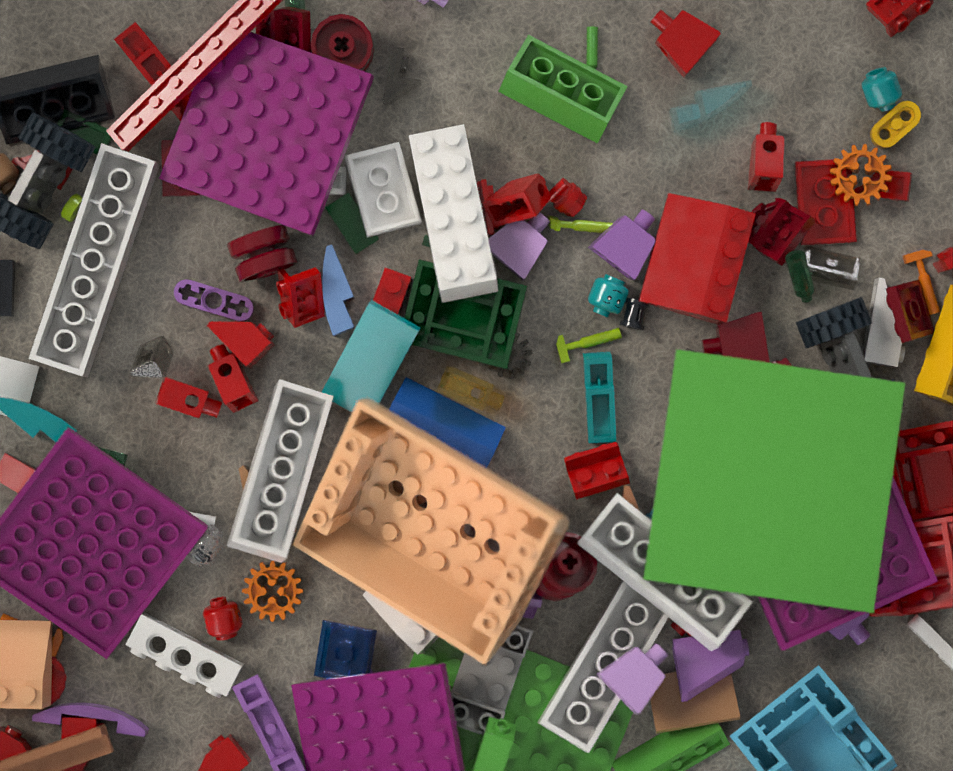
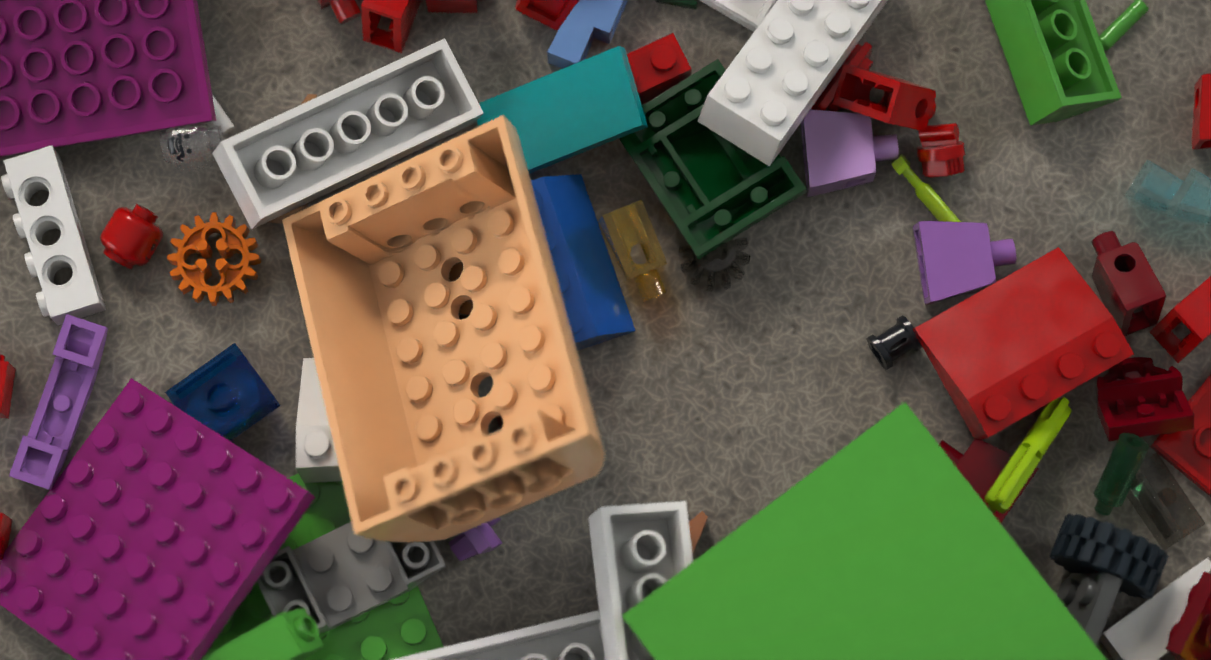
camera: 45 degrees right, 10 degrees down
(569, 570) = (546, 535): dark red wheel -> none
(585, 342) = (811, 324): lime piece -> none
(596, 470) = (688, 467): red bracket -> none
(599, 397) = (768, 395): teal slope -> none
(608, 295) = (885, 294): teal head -> none
(726, 186) = (1129, 289): none -> dark red torso
(752, 313) = (1028, 455): none -> lime axle

